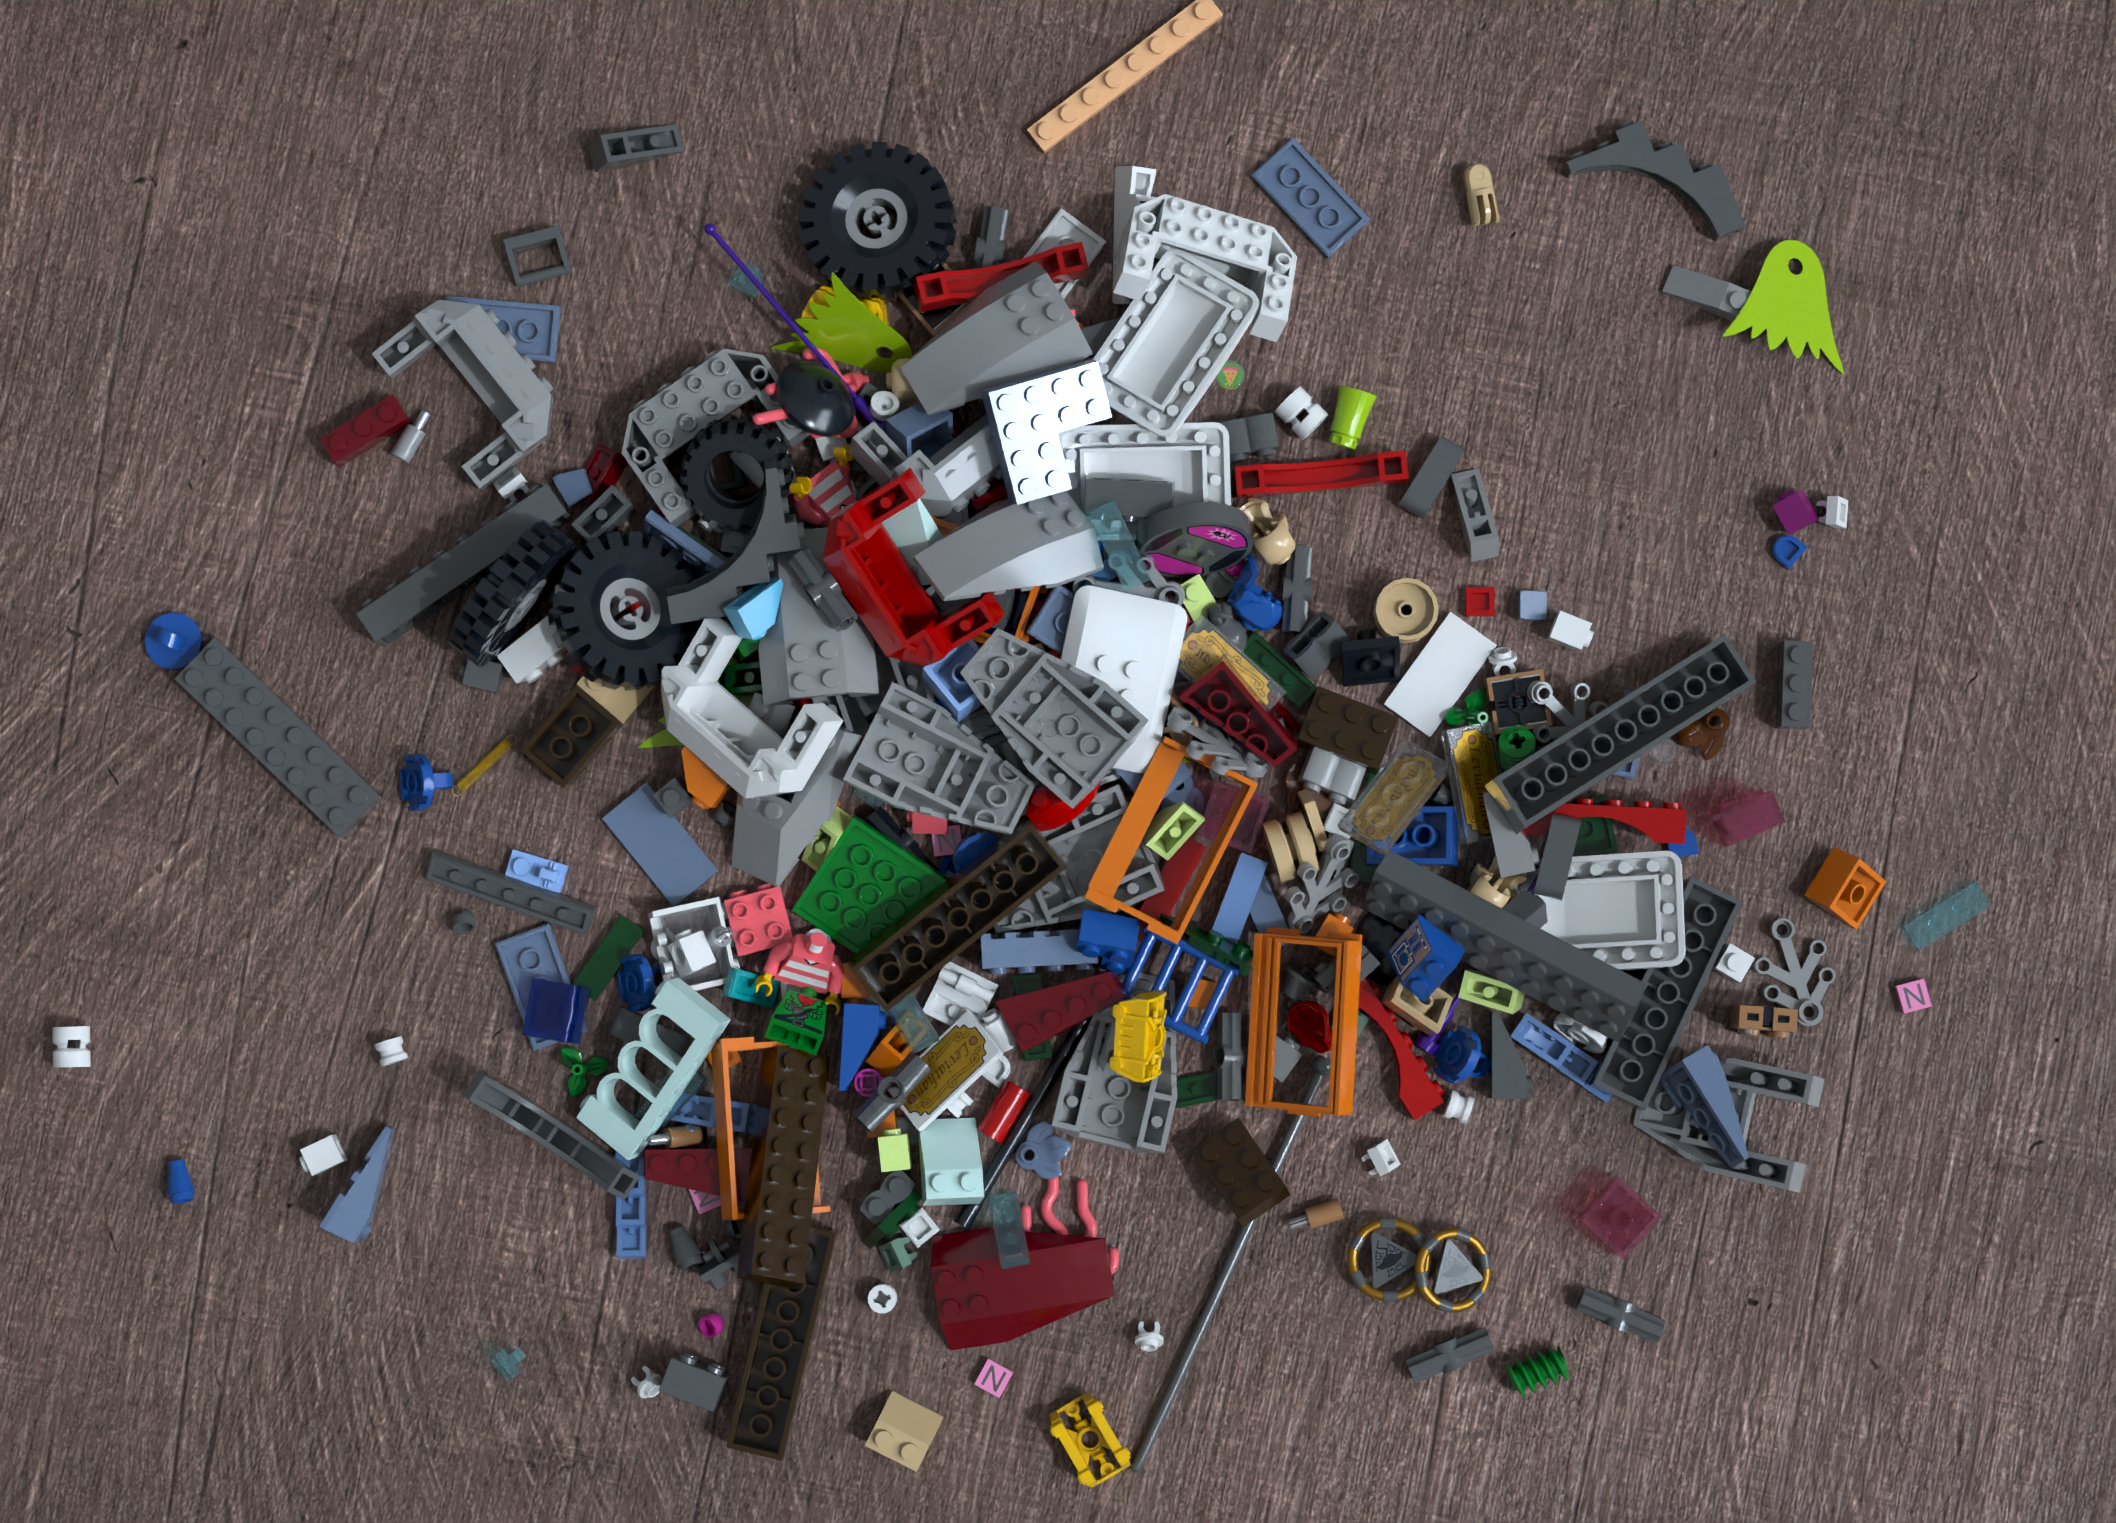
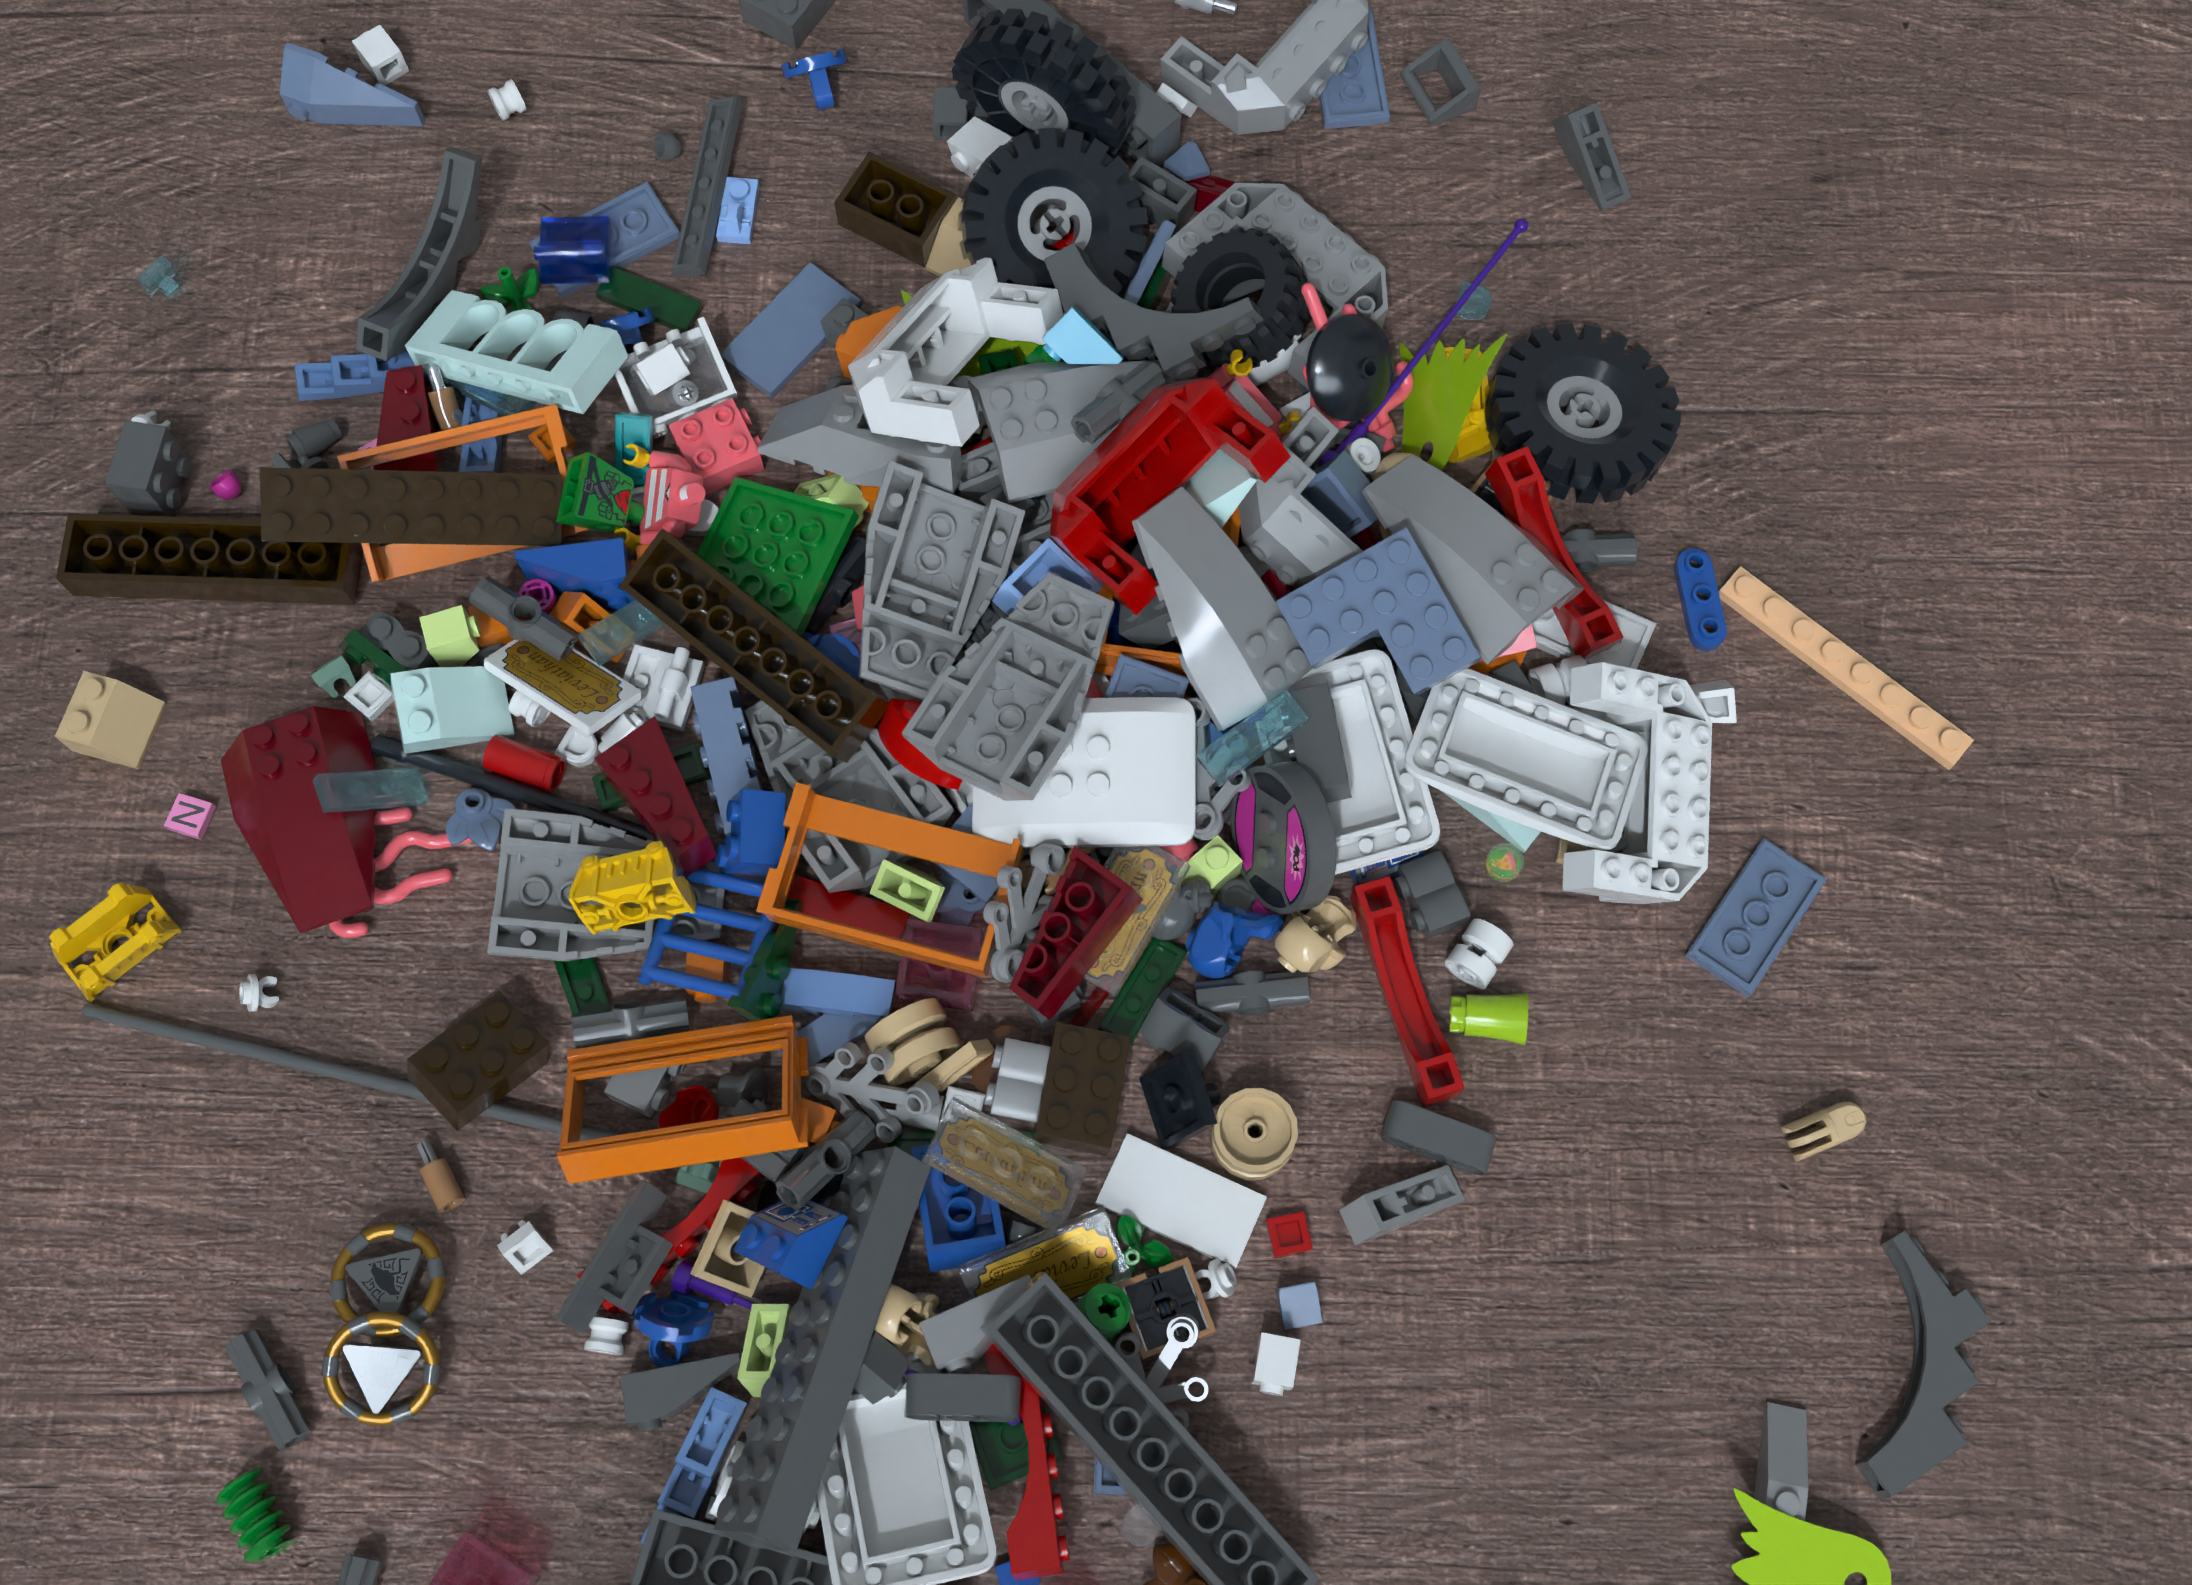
camera: 75 degrees right, 15 degrees down
(500, 747) = (853, 138): yellow piece -> none
(884, 1294) = (284, 670): white wheel -> none
(1057, 175) = (1700, 612): none -> blue plate
(1099, 296) = (1553, 681): none -> white wheel
(1369, 922) = (812, 1172): none -> dark grey piece
(1416, 1082) = (622, 1262): none -> dark grey bracket

